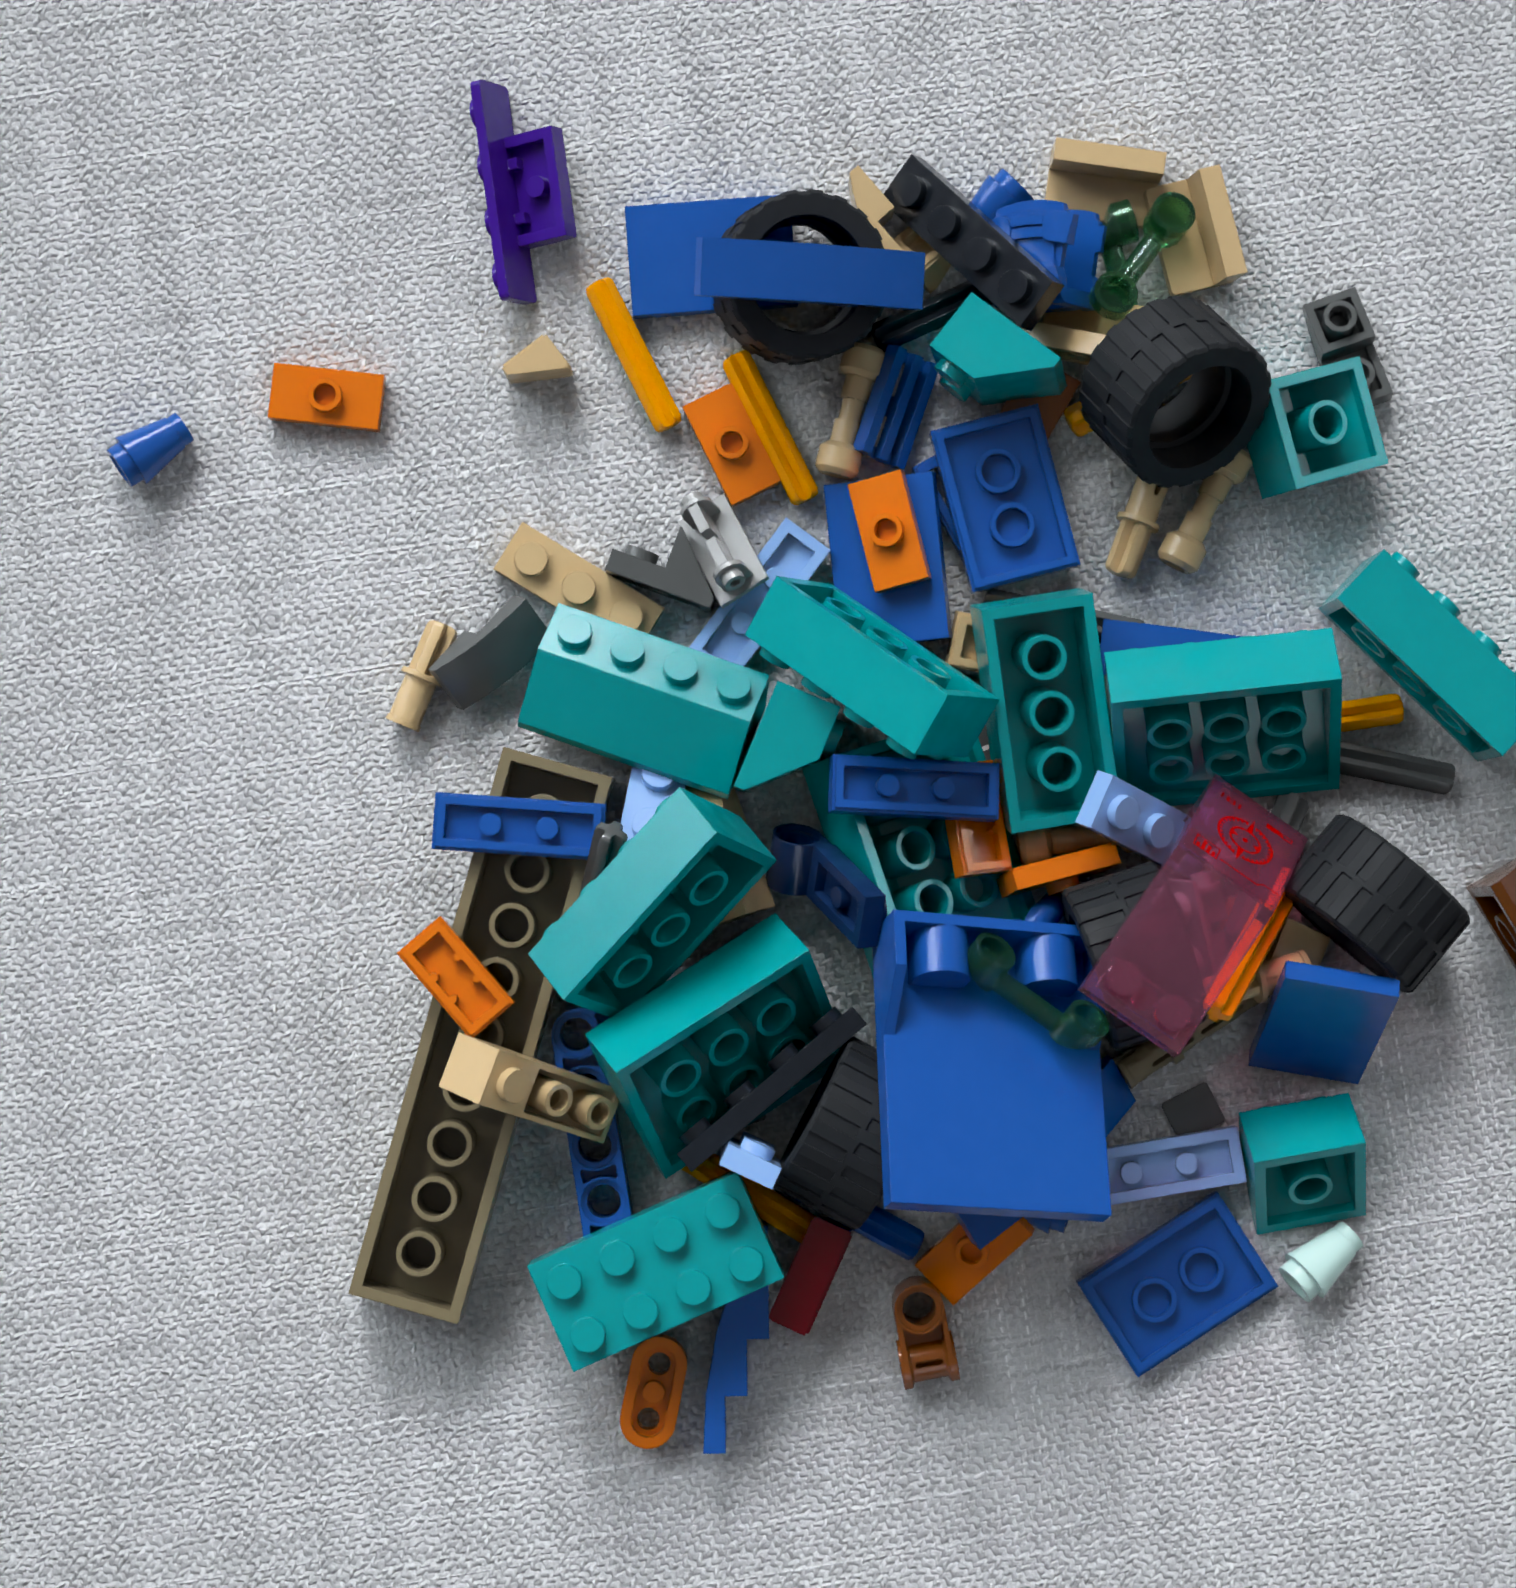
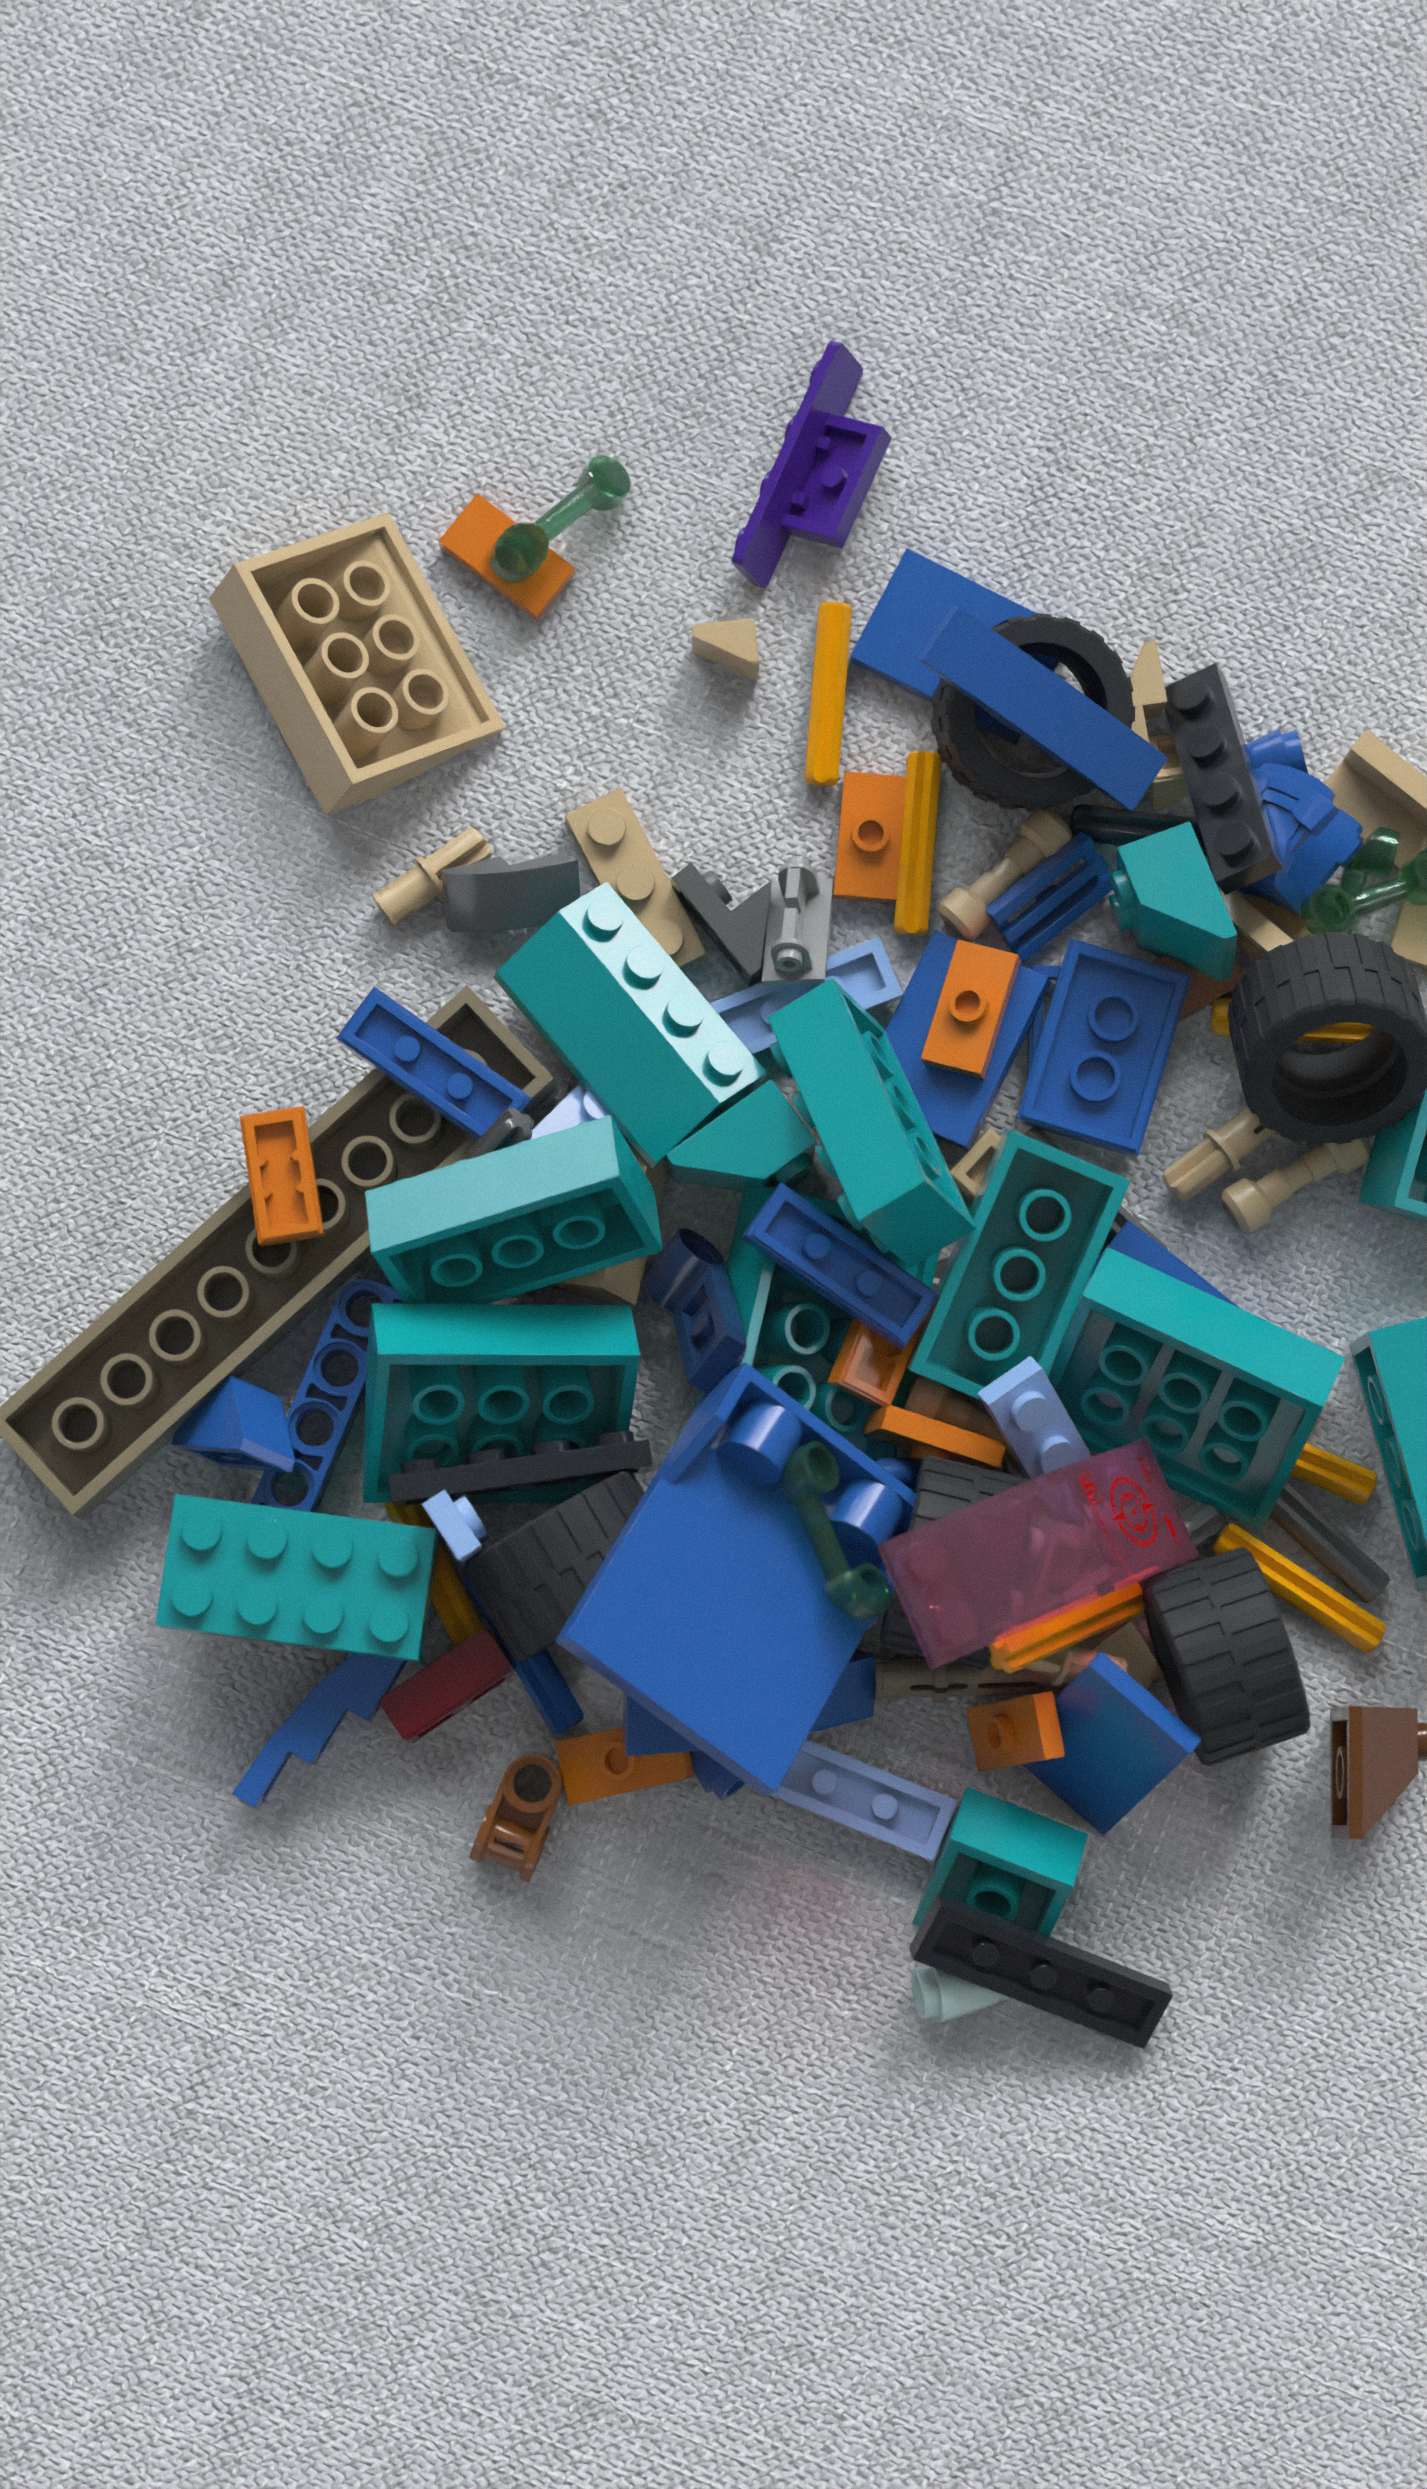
camera: 30 degrees right, 5 degrees down
(149, 449) = (306, 502): blue cone -> none
(262, 547) = (354, 661): none -> tan slope
(338, 383) = (525, 544): none -> clear green bar
(529, 1088) = (286, 1326): tan slope -> none
(539, 1179) = (239, 1429): none -> blue slope
(653, 1390) = (222, 1706): orange plate -> none
(1177, 1283) = (802, 1922): blue tile -> none
(1193, 1110) = (924, 1762): dark grey sticker -> none
(1251, 1051) = (1015, 1731): none -> orange plate
(1375, 1215) = (1040, 1971): none -> black plate
(1395, 813) = (1307, 1591): none -> light orange axle

